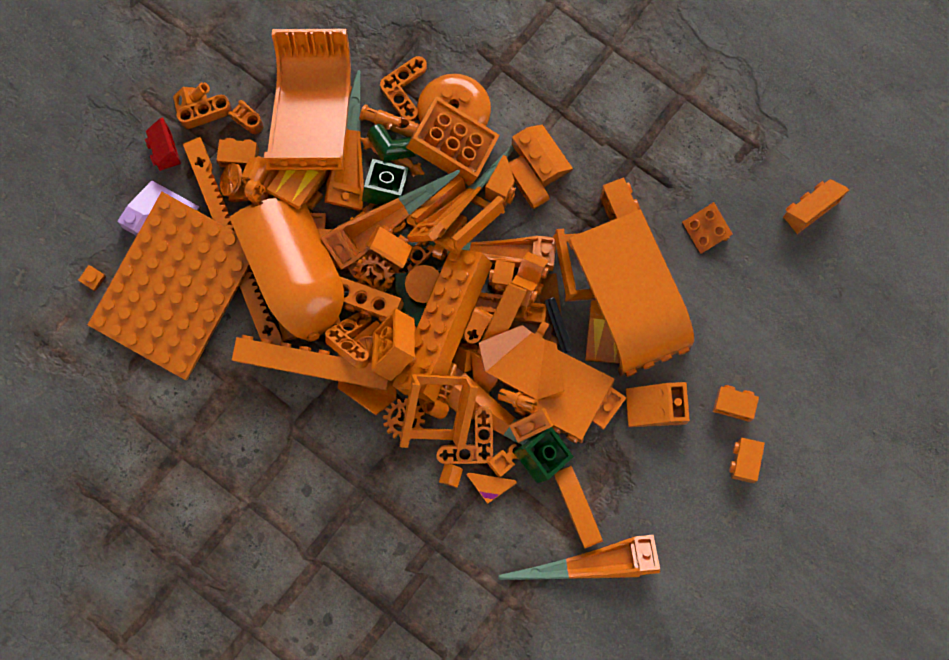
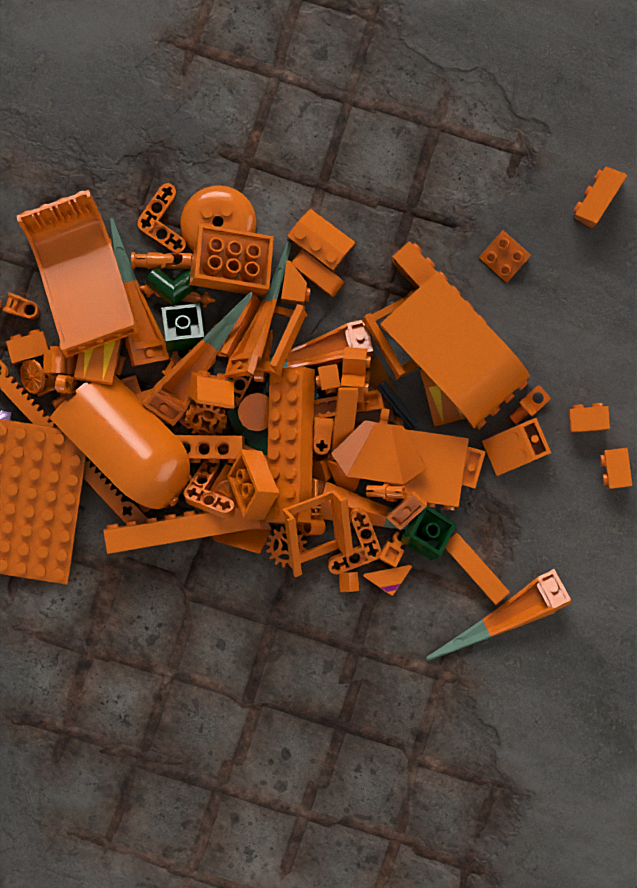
camera: 15 degrees left, 10 degrees up
(682, 372) = (528, 405): none -> orange bracket

